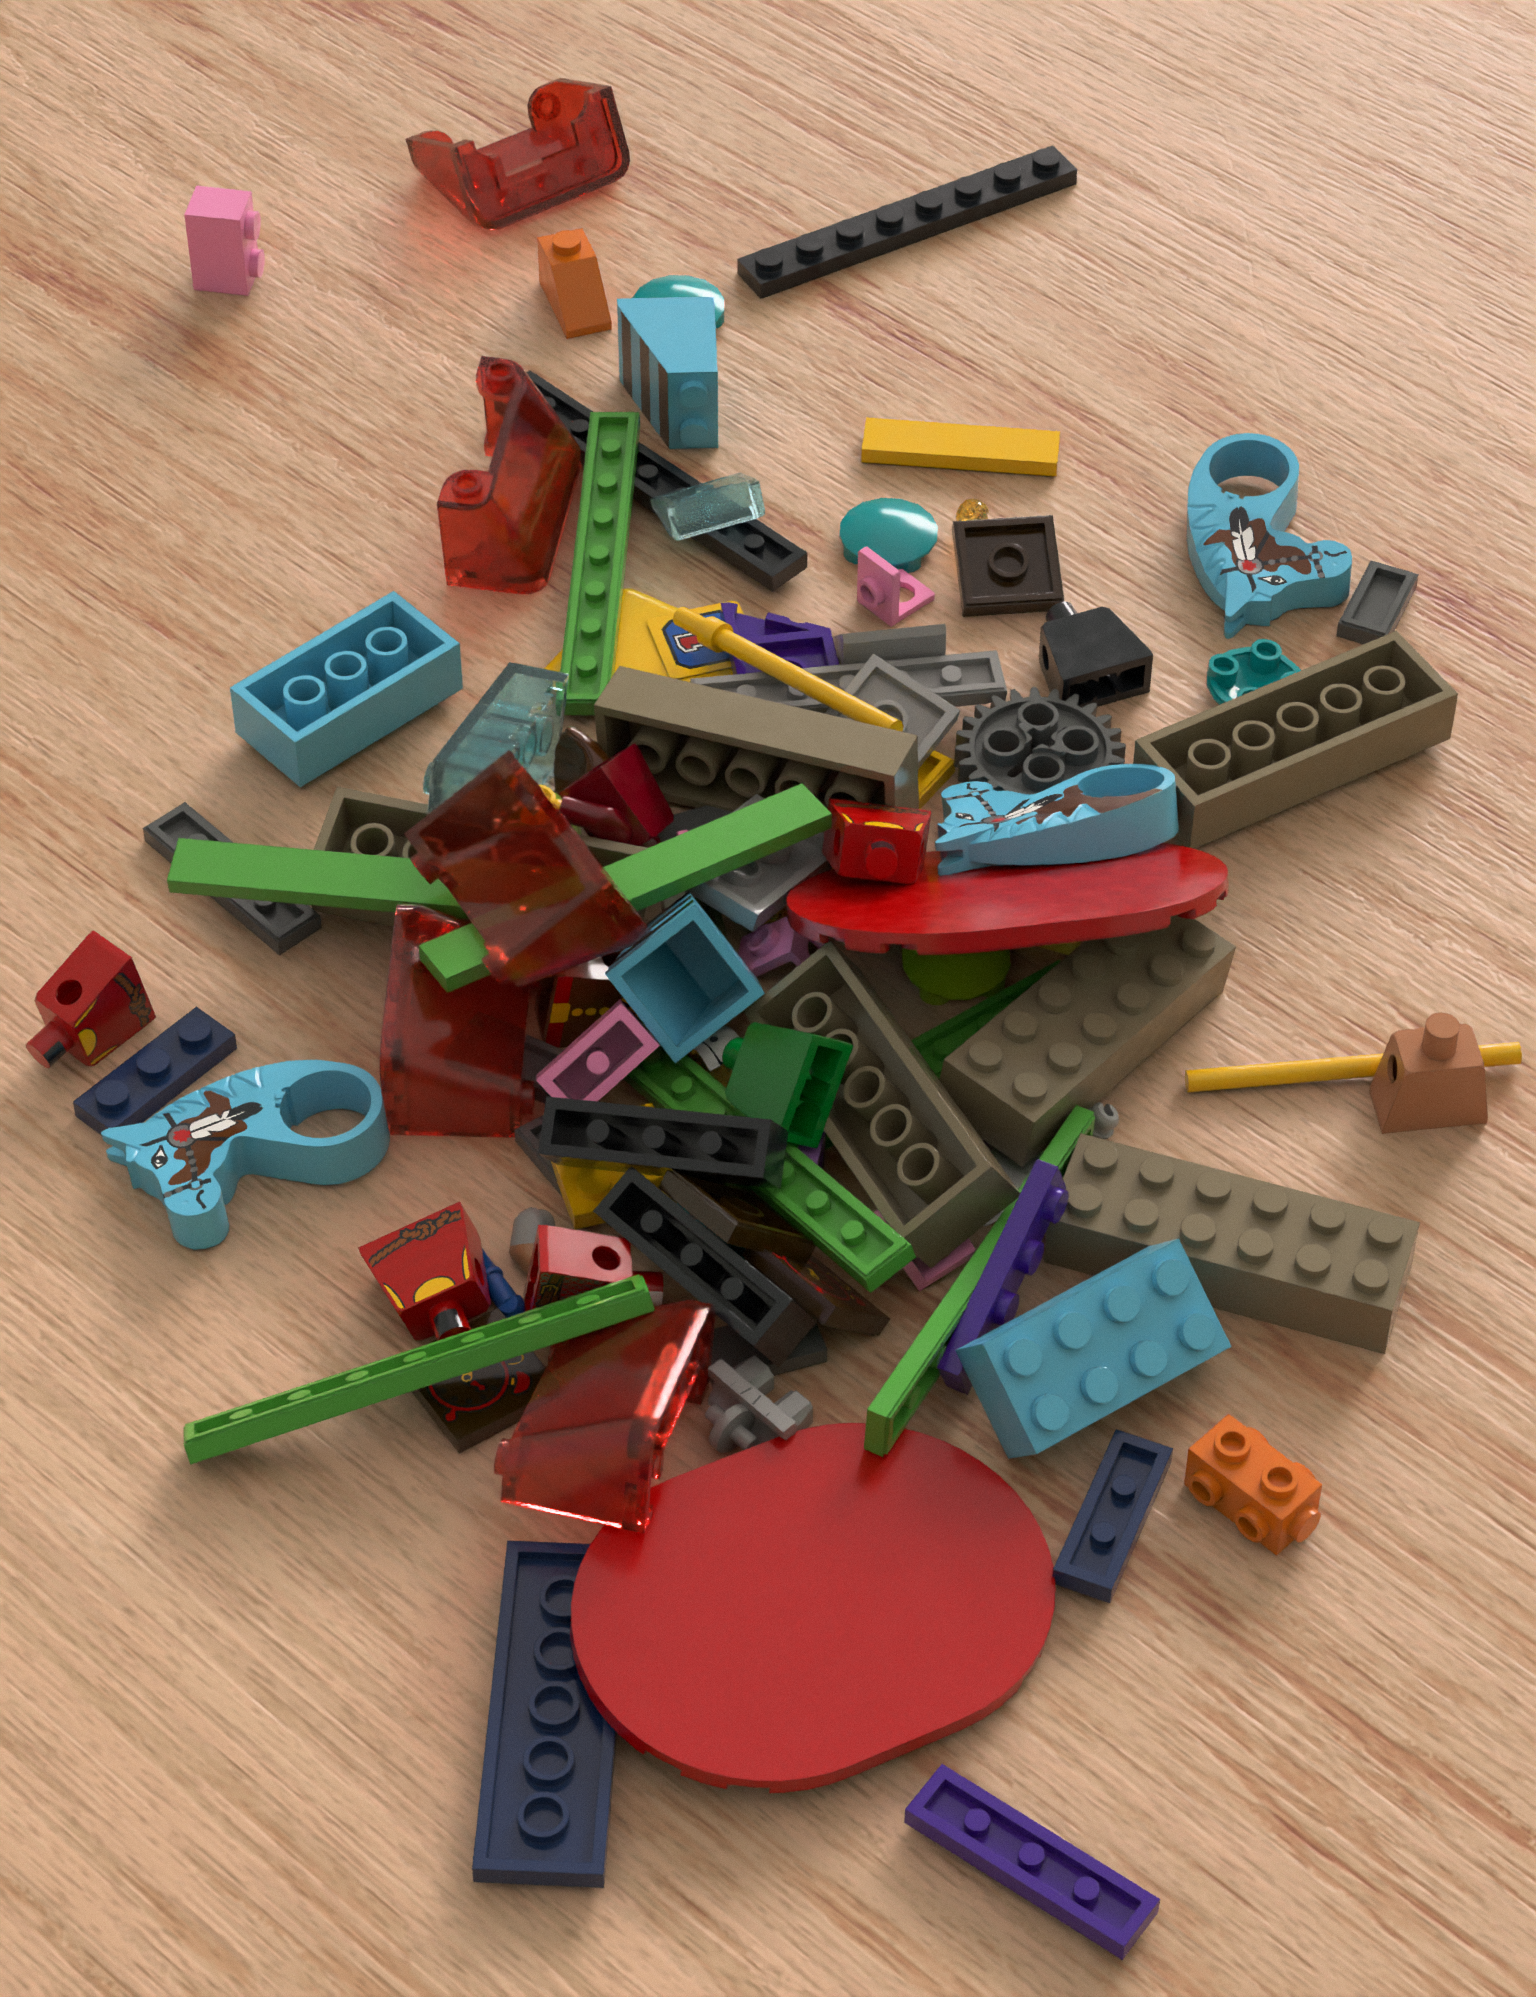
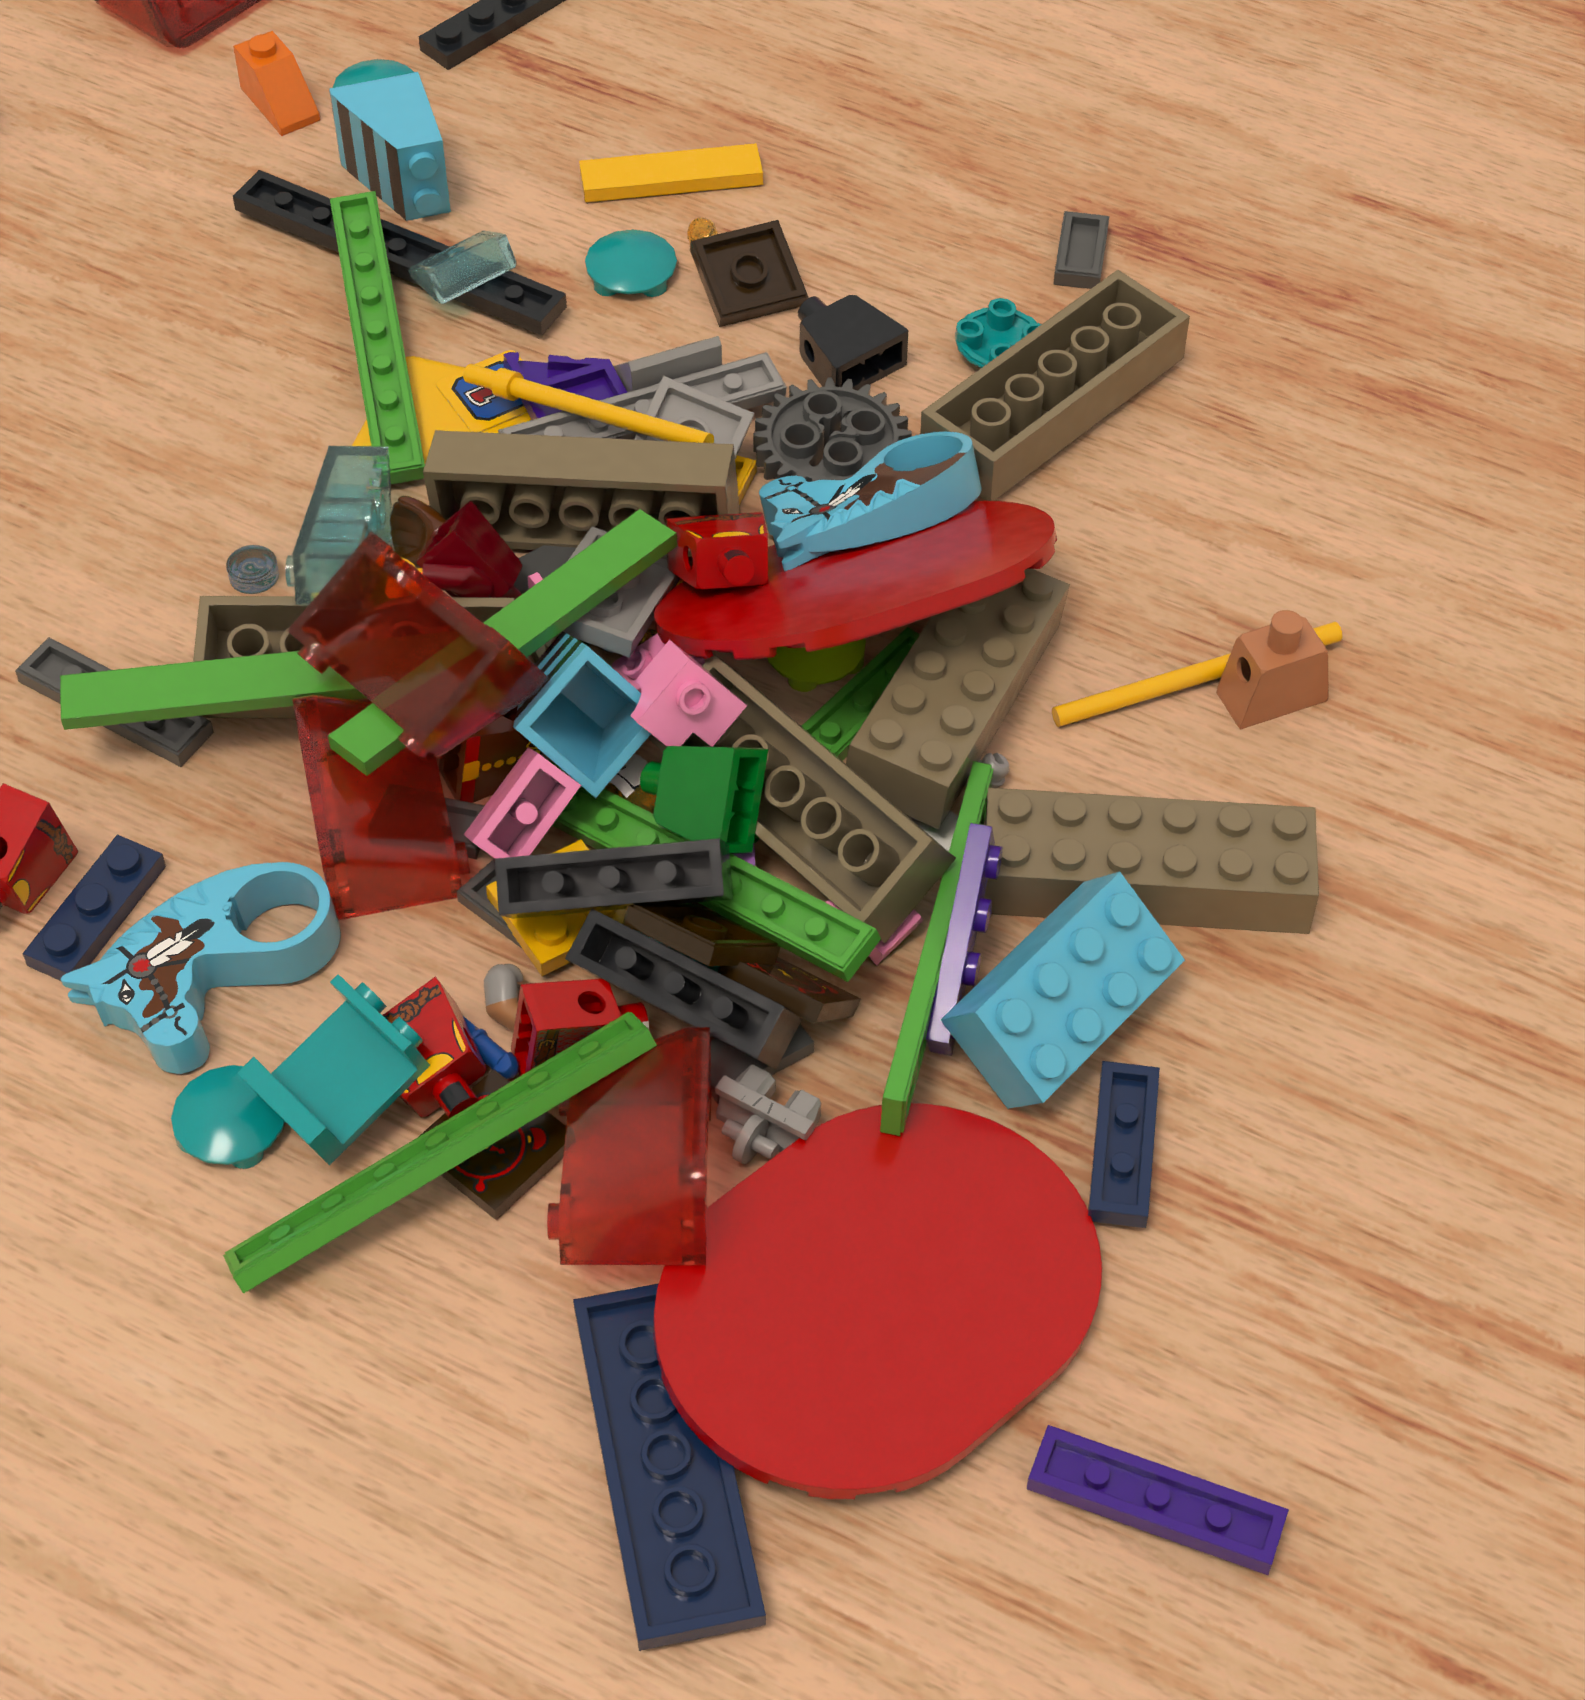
camera: 15 degrees left, 5 degrees up
(228, 1298) = (224, 1120): none -> teal dish
(342, 1276) = (341, 1073): none -> teal panel
(346, 688) = (175, 499): medium azure brick -> none
(404, 773) = (252, 569): none -> clear smoke tile
(508, 521) = (283, 312): clear red windscreen -> none
(784, 978) = (683, 699): none -> bright pink brick
(880, 588) = (642, 313): bright pink bracket -> none
(1241, 543) = (946, 219): medium azure animal -> none
(1253, 1485) = (1242, 1086): orange brick -> none

